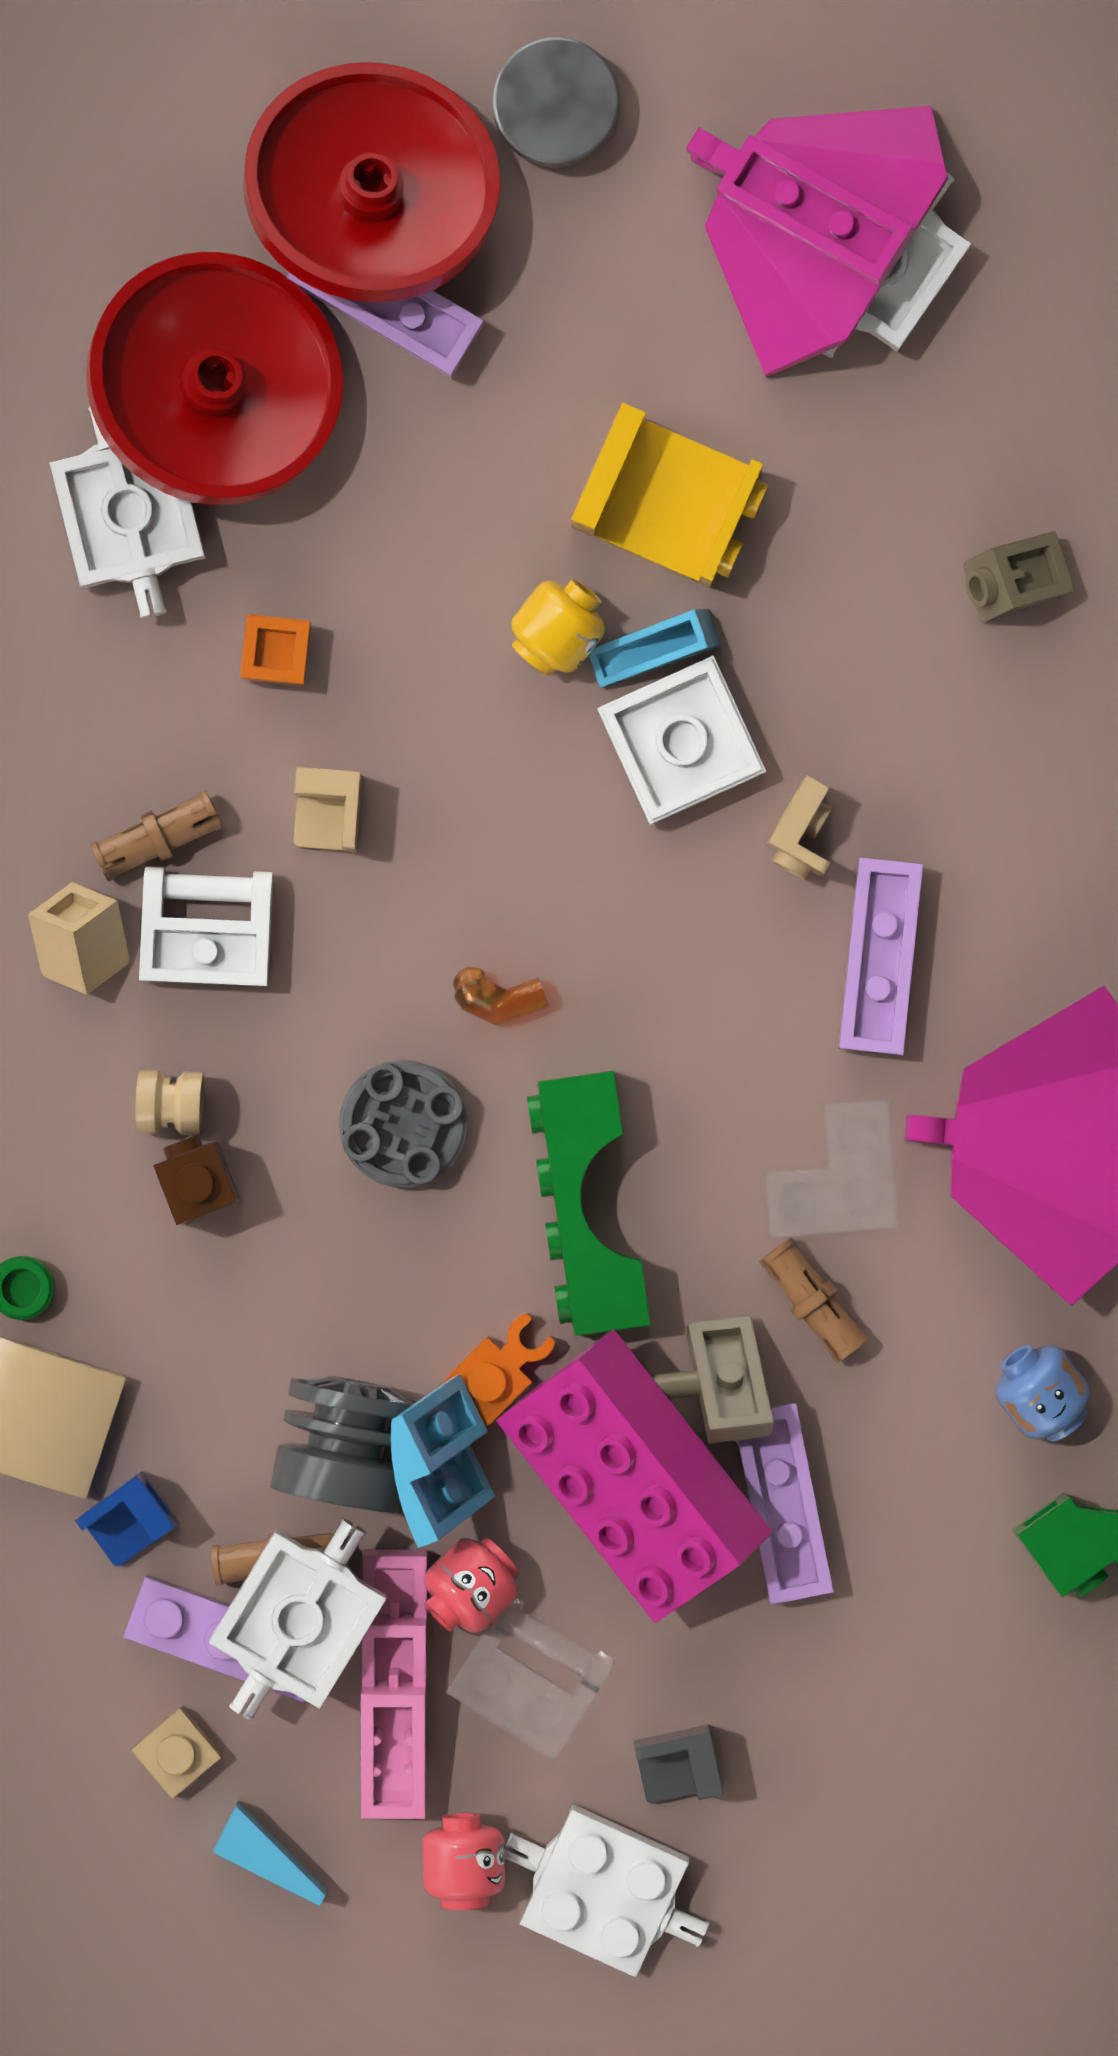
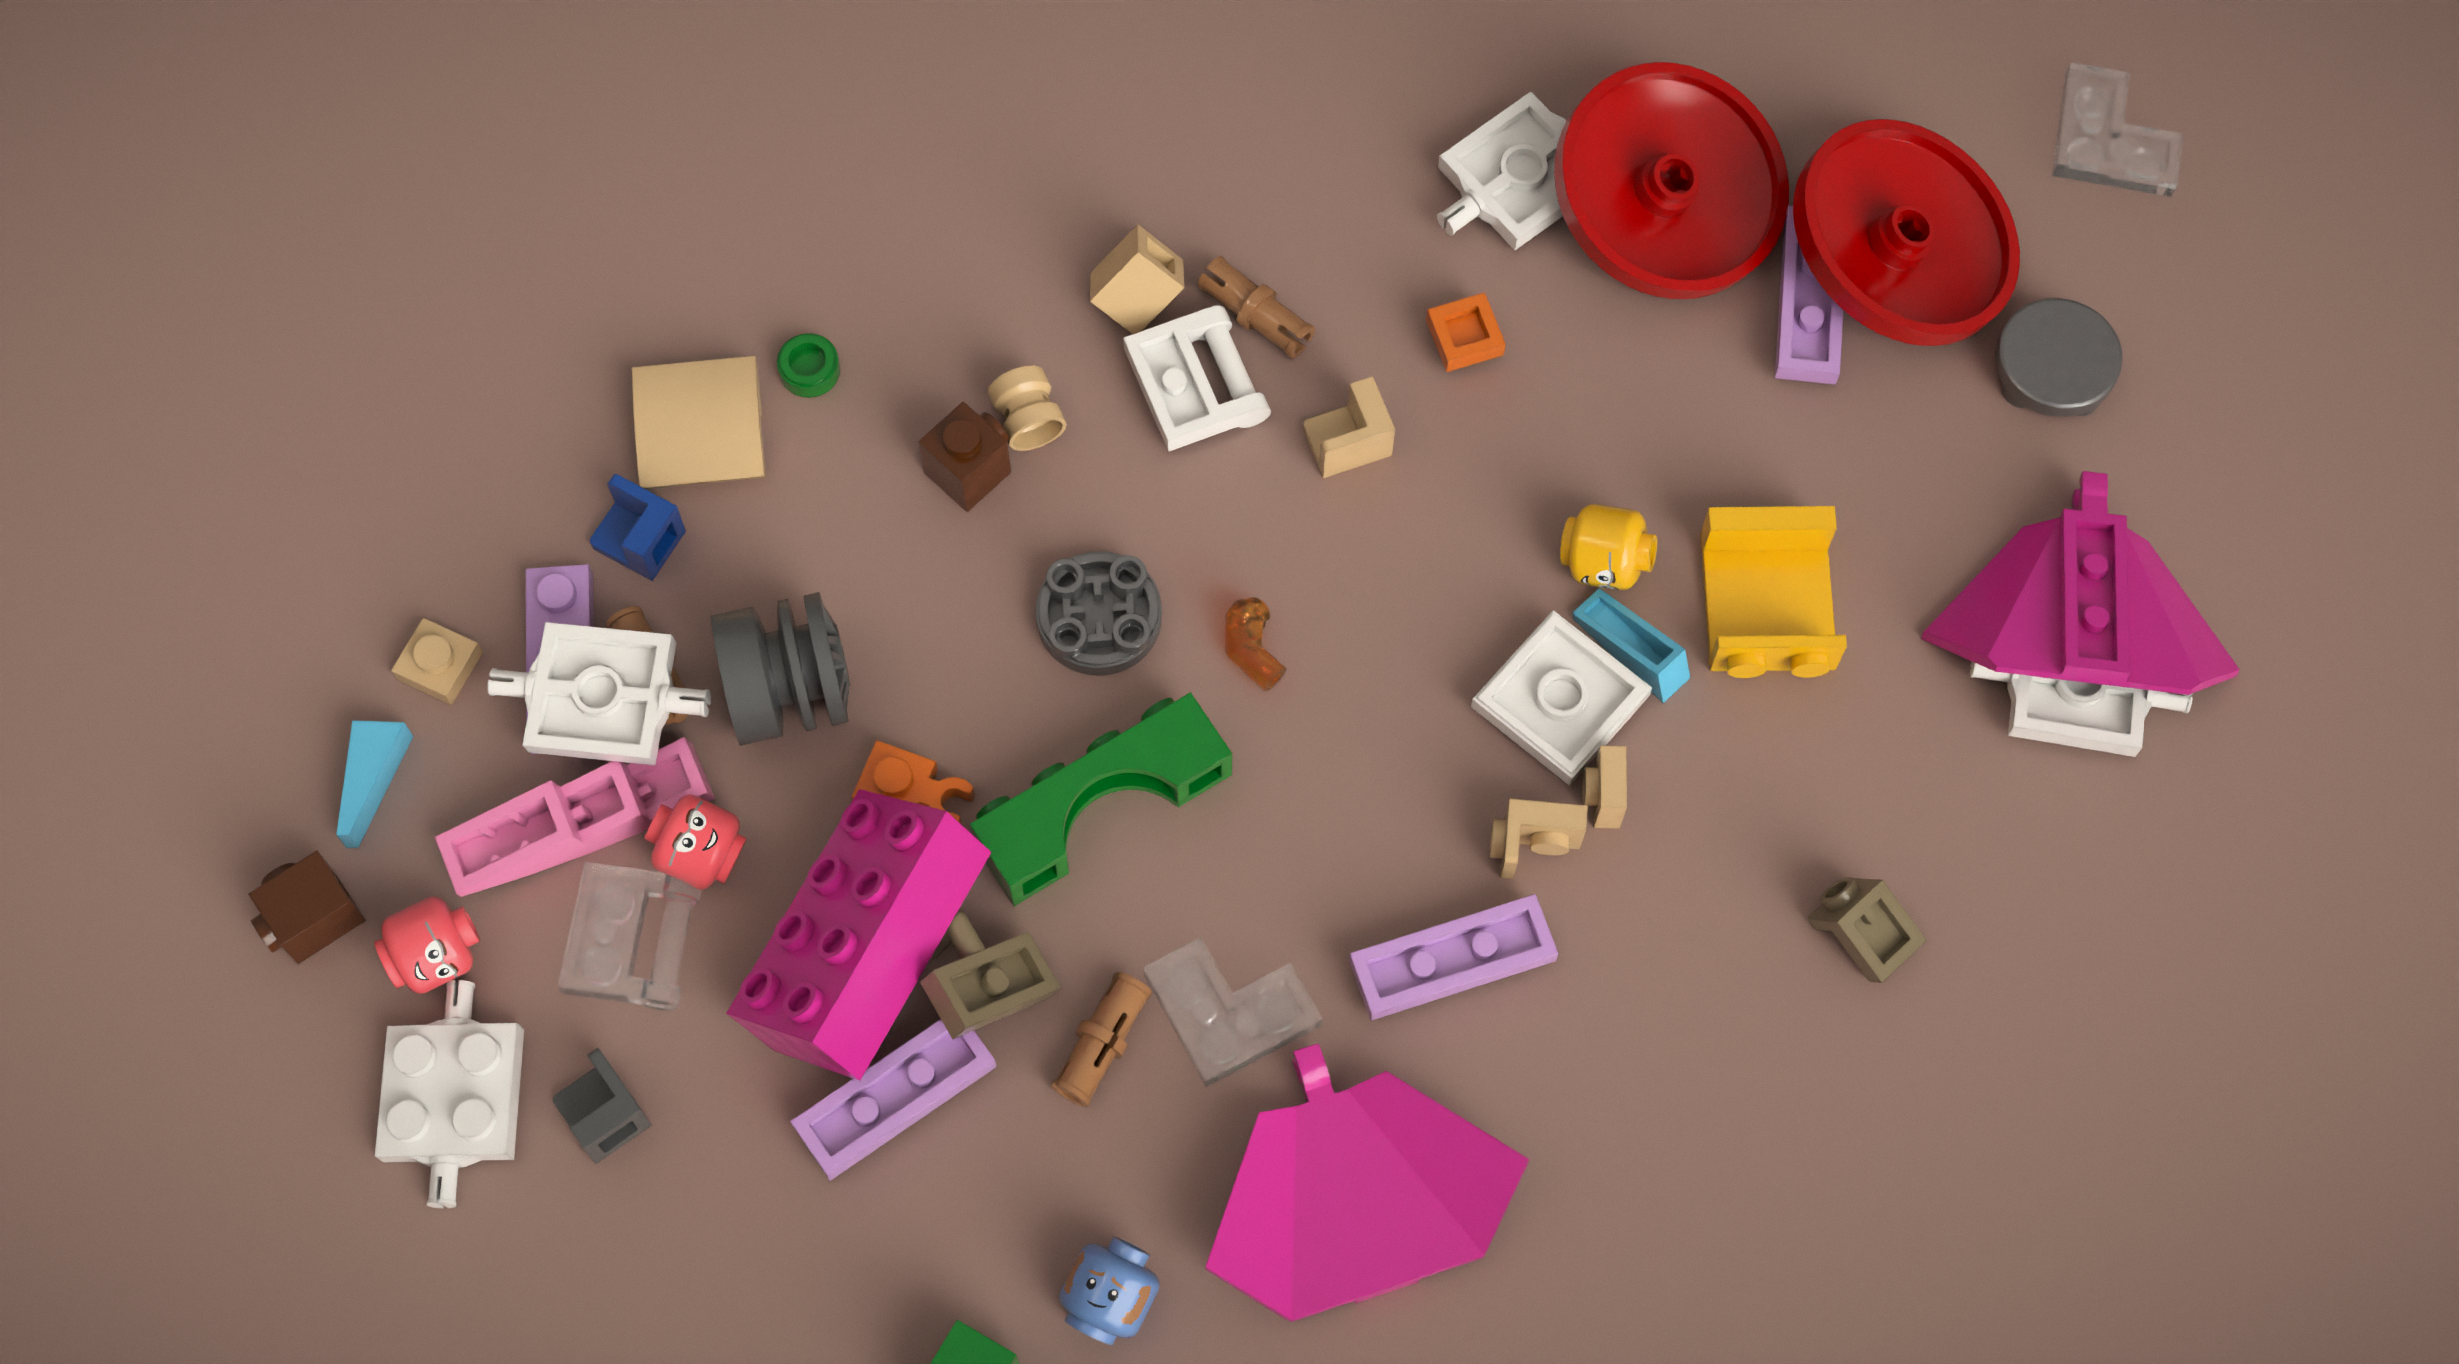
camera: 65 degrees right, 20 degrees down
(374, 1959) = (303, 908): none -> reddish brown brick
(435, 1464) = (799, 750): medium azure slope -> none
(787, 744) = (1606, 787): none -> tan plate

